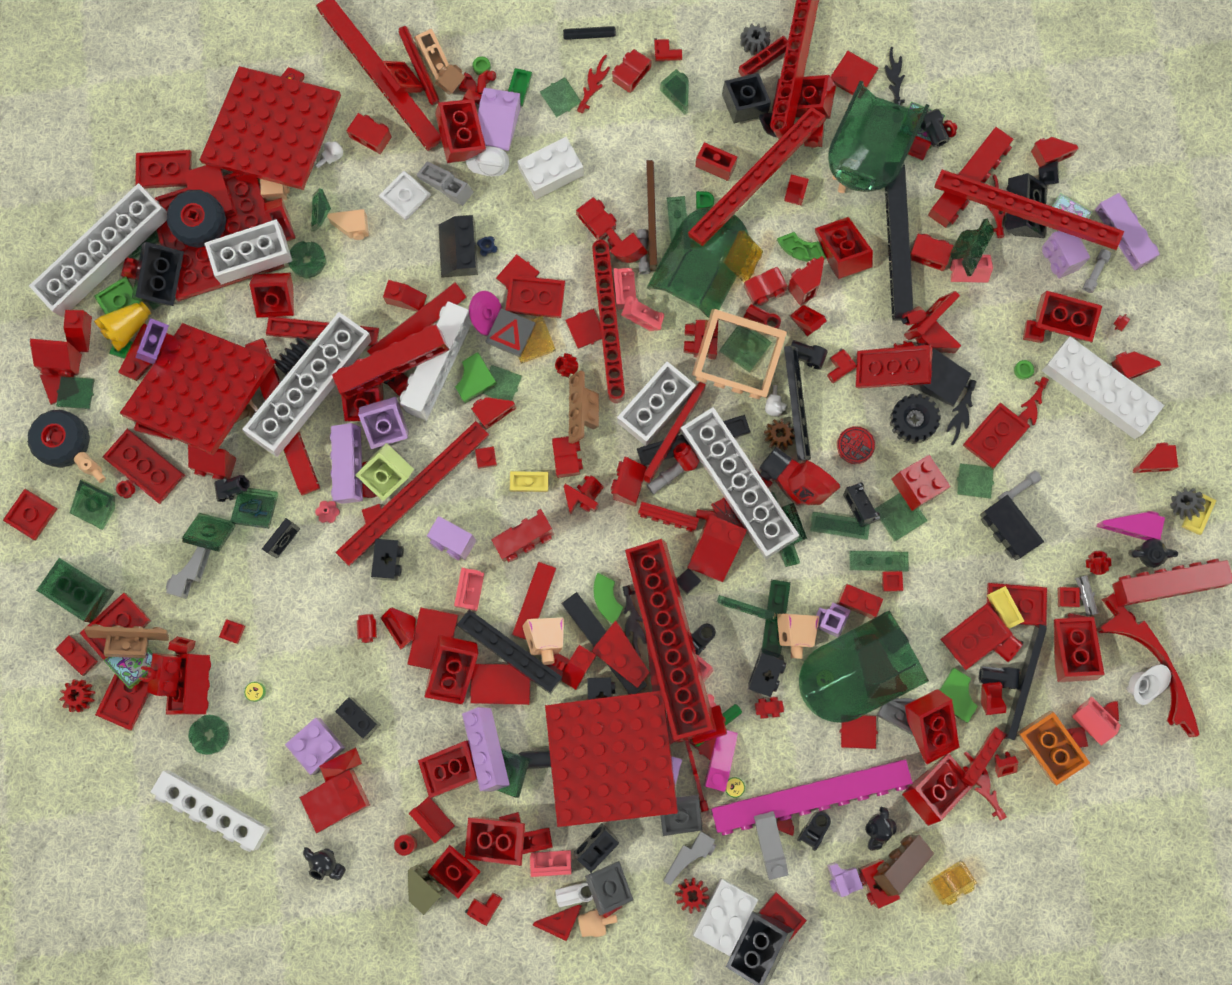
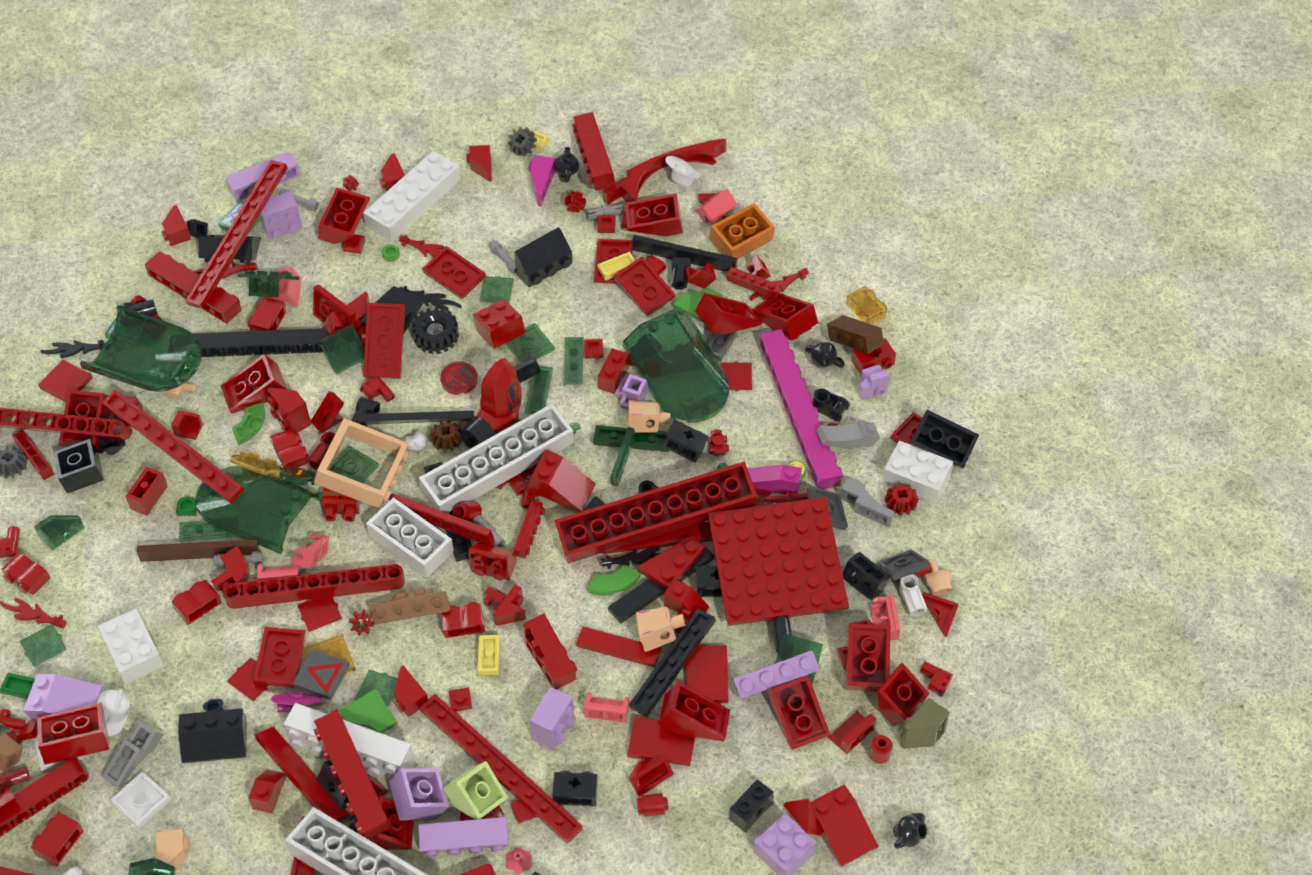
camera: 95 degrees left, 25 degrees down
(730, 296) = (297, 475): none -> clear green tile
(886, 327) = (343, 349): none -> clear green tile

